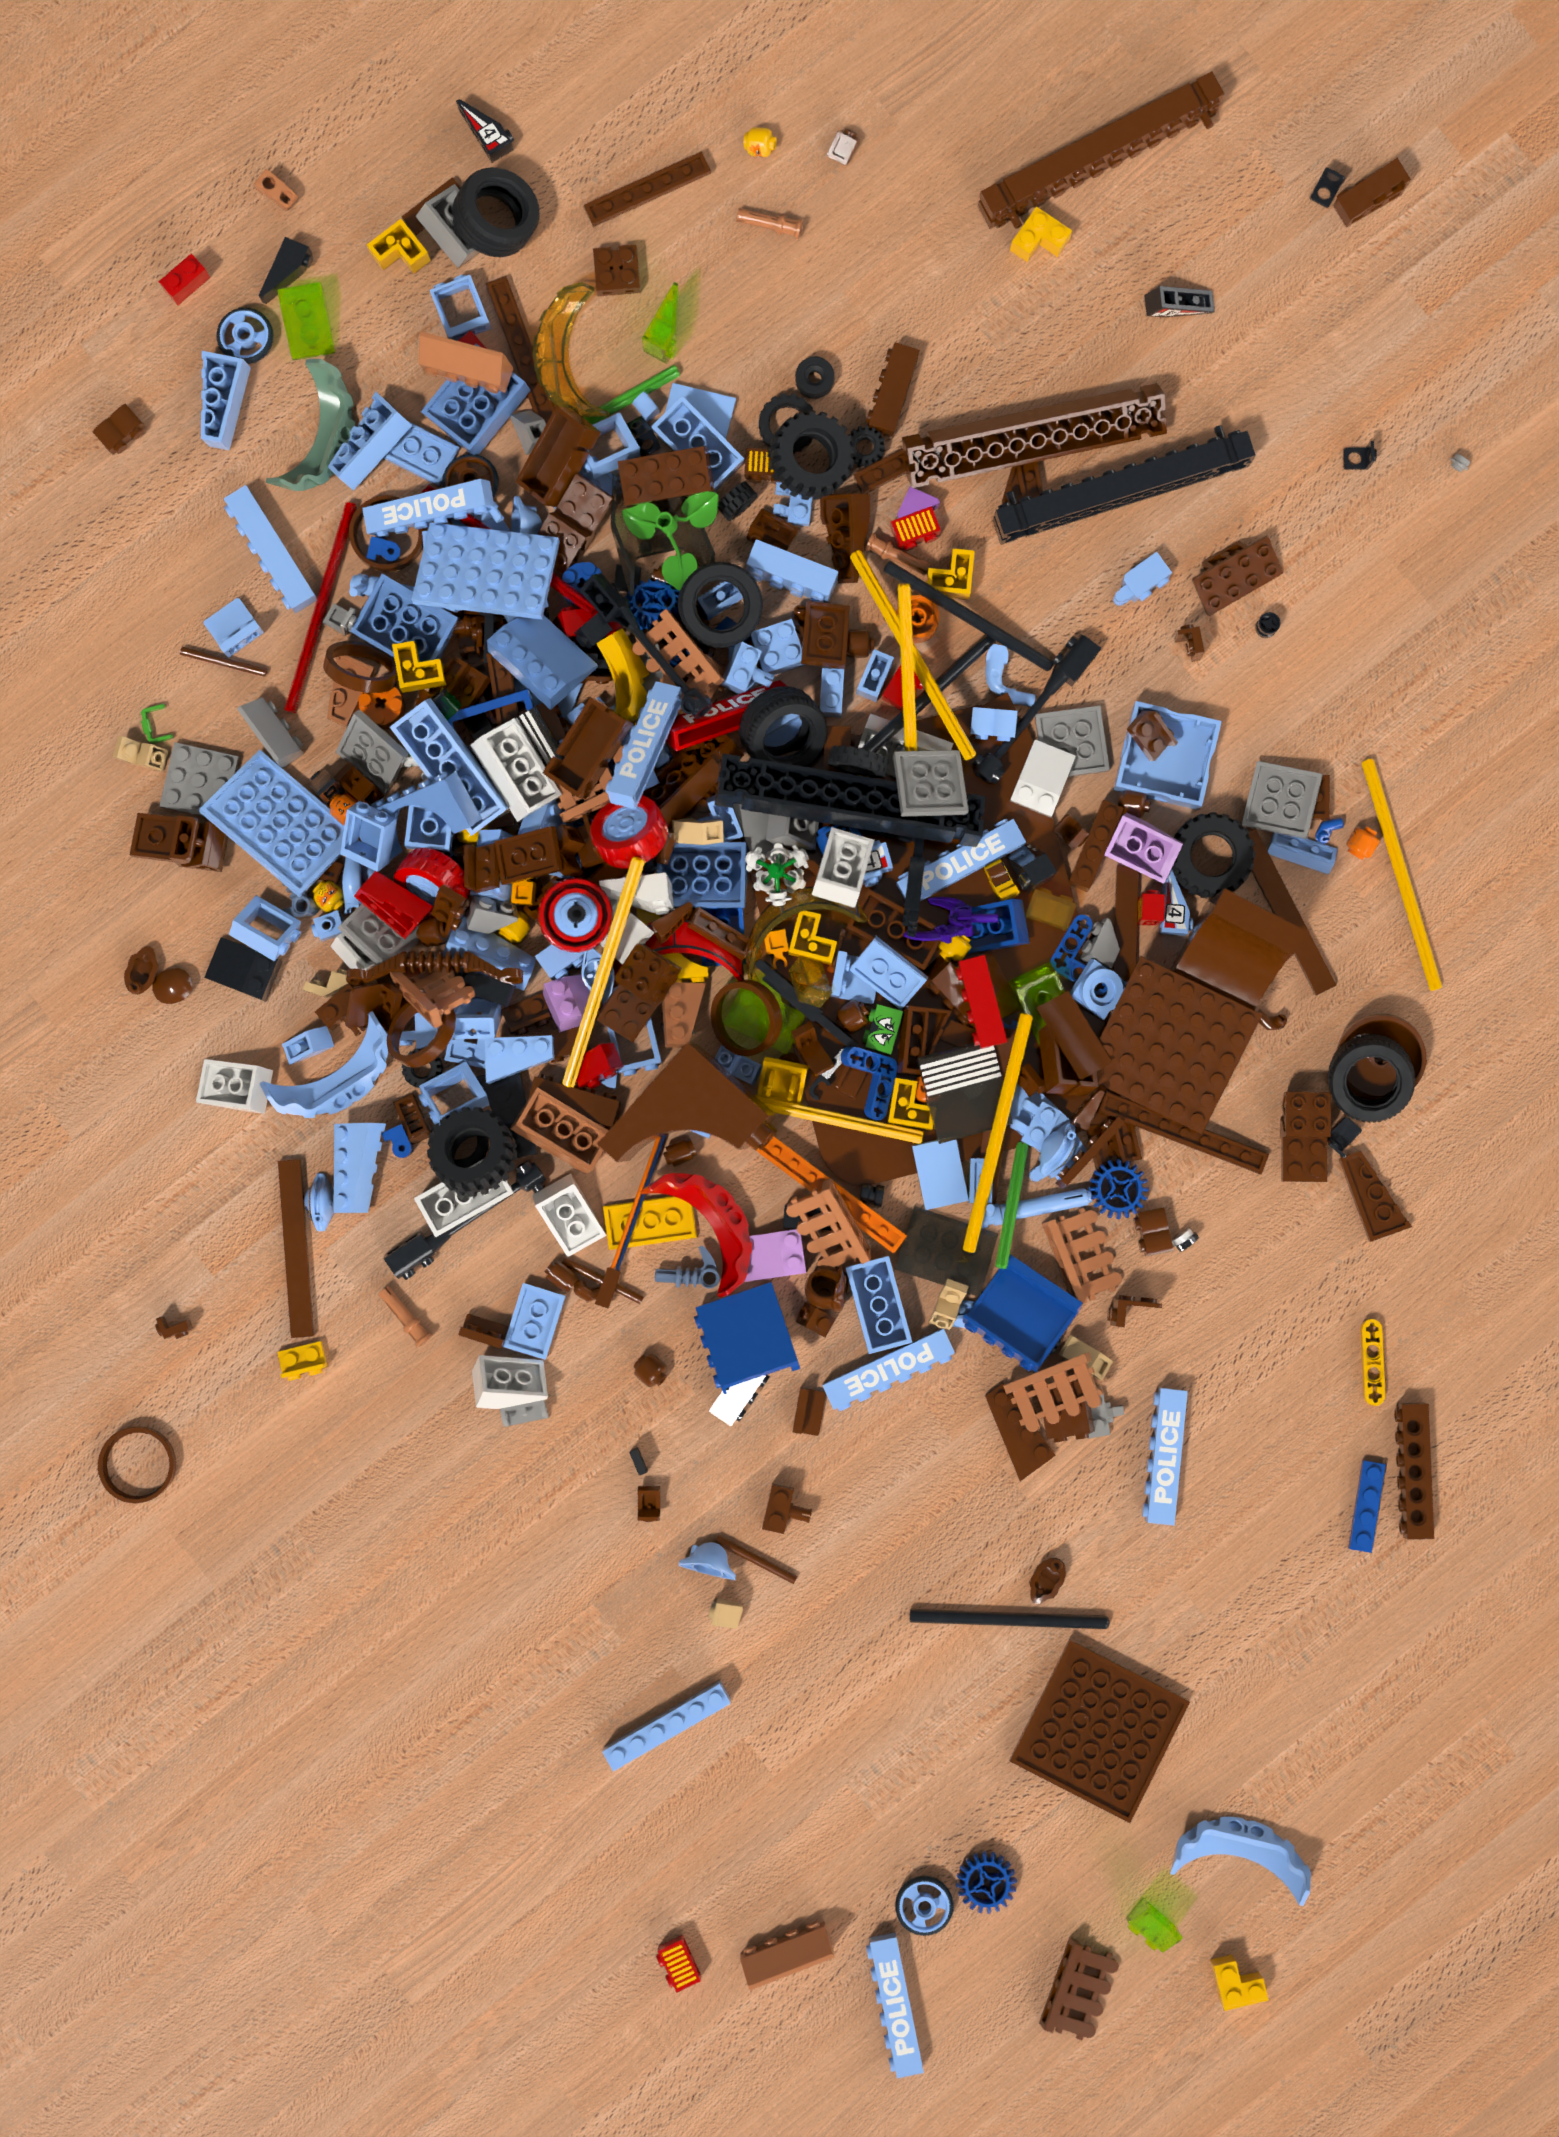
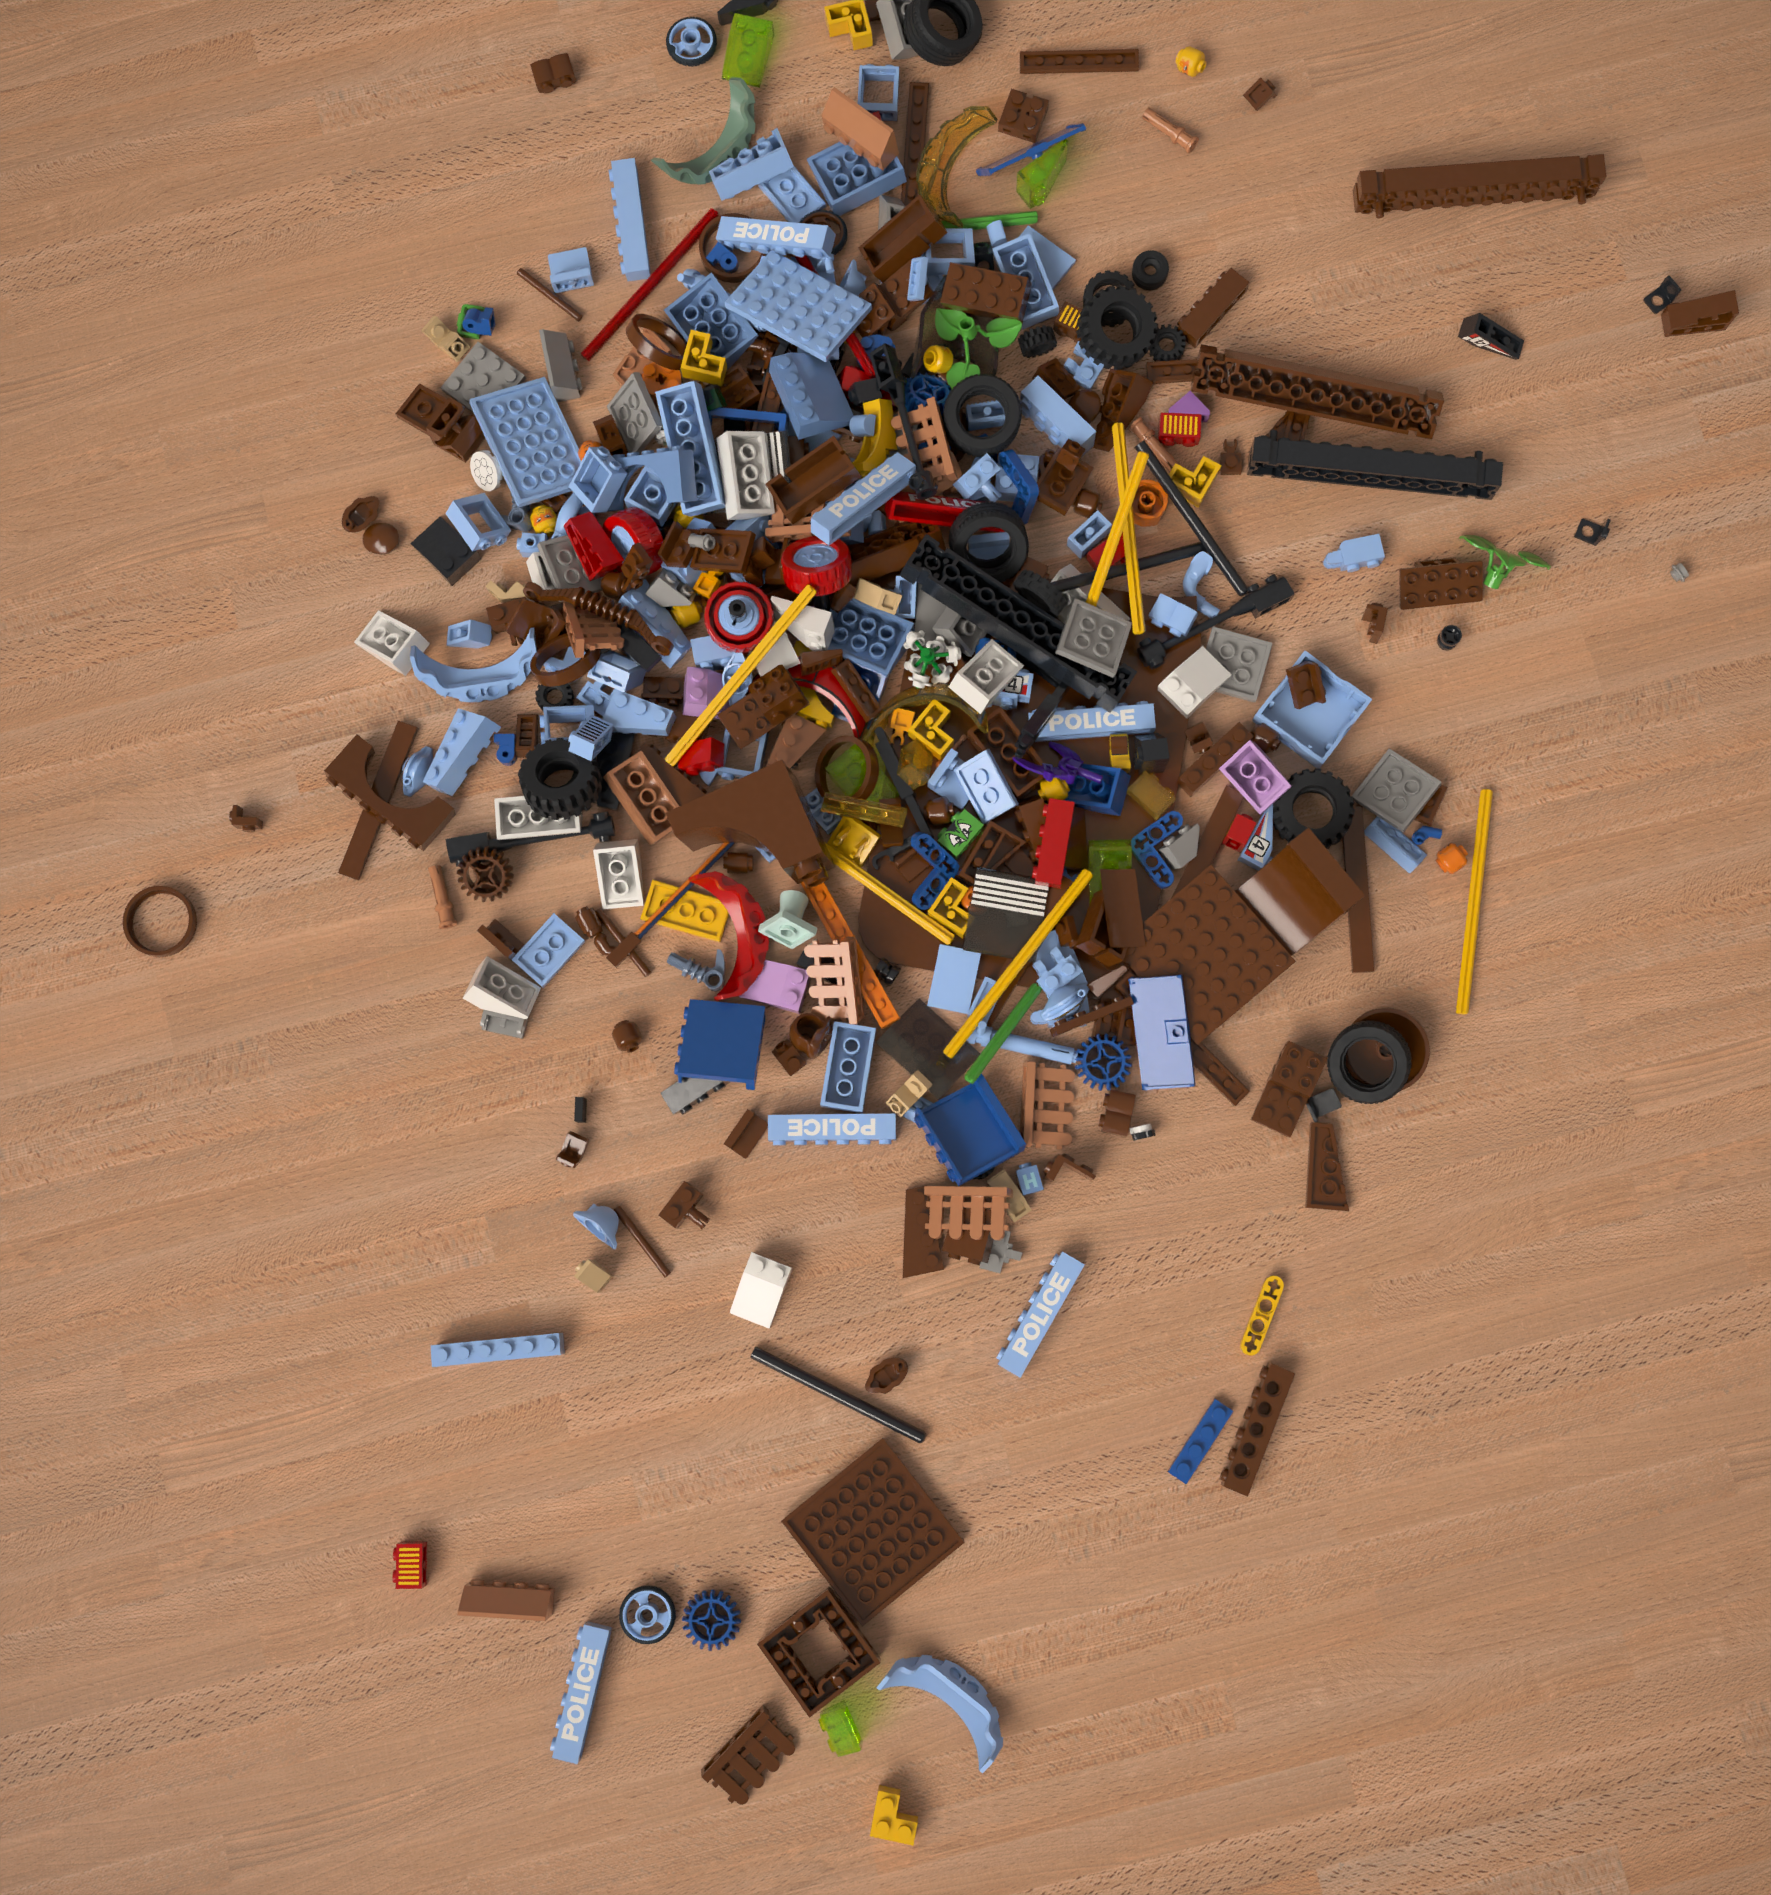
camera: 35 degrees right, 5 degrees down
(167, 721) = (479, 322): none -> blue leg
(222, 397) = (648, 81): light blue wedge -> none
(247, 872) = (486, 470): none -> white tile
(302, 1359) = (338, 895): yellow bracket -> none
(325, 786) = (584, 428): black slope -> none
(340, 619) = (661, 299): light grey bracket -> none
(347, 1257) = (417, 824): none -> reddish brown arch
(453, 1281) = (491, 879): none -> reddish brown gear
(485, 1099) = (590, 737): none -> light blue brick
(508, 855) = (705, 542): none -> light grey pin
(593, 493) = (917, 279): none -> light blue plate
(607, 666) = (862, 425): none -> light blue brick
(643, 306) = (1033, 151): none -> blue door
(648, 563) = (938, 359): none -> yellow head
(758, 1193) = (788, 925): none -> light aqua plant
(781, 1049) = (863, 809): none -> clear yellow tile
(797, 659) = (1023, 481): none -> blue beam
(812, 544) = (1086, 404): none -> reddish brown hat
(823, 605) = (1070, 454): none -> reddish brown bracket
(831, 692) = (1046, 533): light blue hinge -> none
(891, 1553) = (760, 1290): none -> white slope
(979, 538) = (1230, 461): none -> reddish brown plate
(1040, 231) = (1395, 229): yellow brick -> none
(1084, 987) = (1148, 877): light blue piece -> none
(1098, 1333) = (1029, 1179): none -> medium blue brick
(1118, 1903) = (816, 1694): none -> reddish brown brick
(1163, 1136) = (1162, 1032): none -> door
(1273, 1022) = (1302, 978): reddish brown arm -> none
(1292, 529) = (1497, 572): none -> bright green plant

